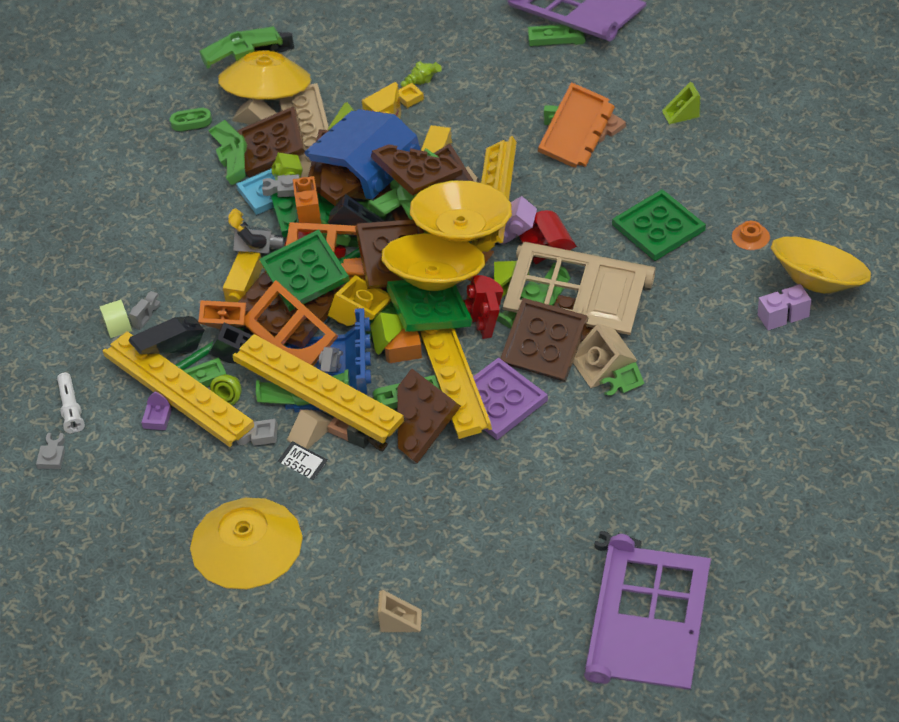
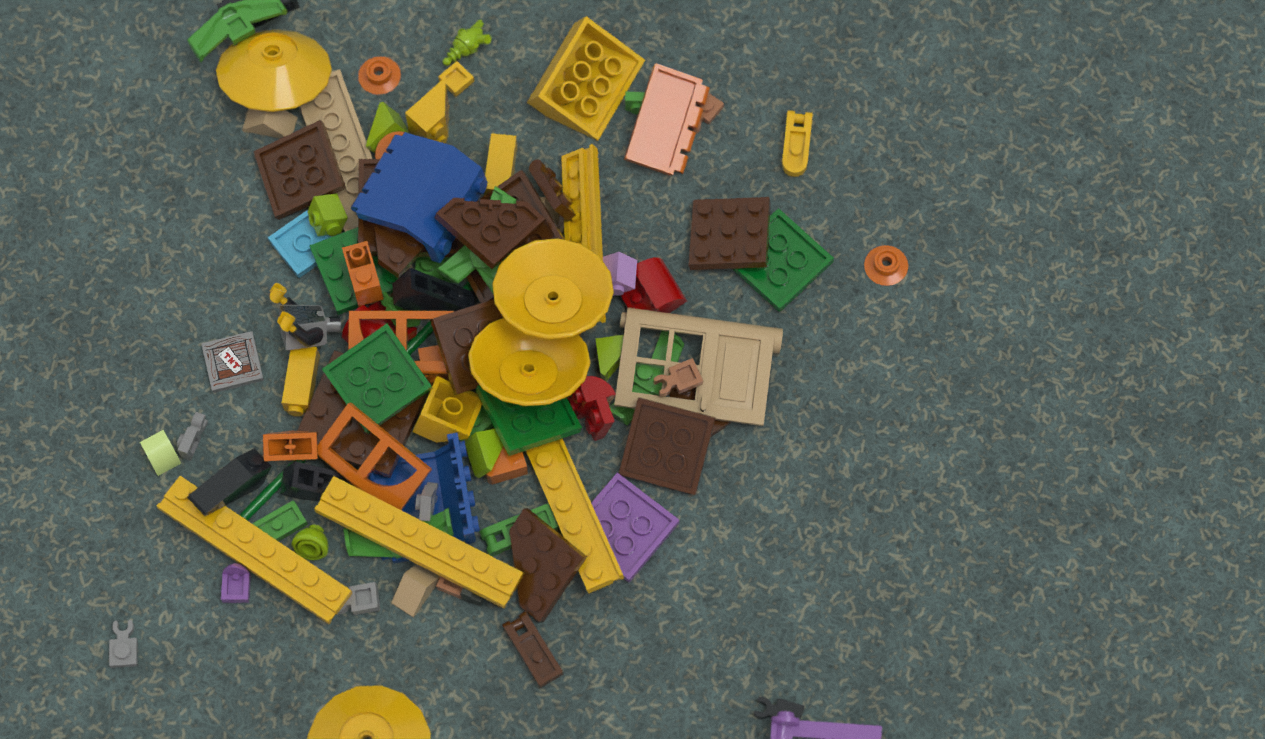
camera: 10 degrees left, 20 degrees up
(70, 410) = (132, 584): white pin -> none
(190, 119) = (191, 134): bright green plate -> none
(190, 265) = (232, 362): none -> light grey tile
(232, 150) = (251, 186): bright green plate -> none
(282, 186) = (329, 246): light grey plate -> none
(302, 460) = (414, 630): sticker -> none
(348, 91) = (379, 83): none -> orange piece
(404, 481) = (533, 650): none -> reddish brown plate
(474, 162) = (552, 189): none -> reddish brown plate
(514, 99) = (586, 79): none -> yellow slope
(561, 289) = (681, 376): none -> nougat plate
(601, 354) = (736, 460): tan slope -> none
(618, 202) = (729, 233): none -> reddish brown plate
(625, 379) = (764, 489): bright green plate -> none
(683, 106) = (790, 76): lime slope -> none
(683, 150) = (796, 143): none -> yellow plate
(774, 307) = (923, 377): lavender piece -> none
(819, 265) = (972, 314): yellow dish -> none

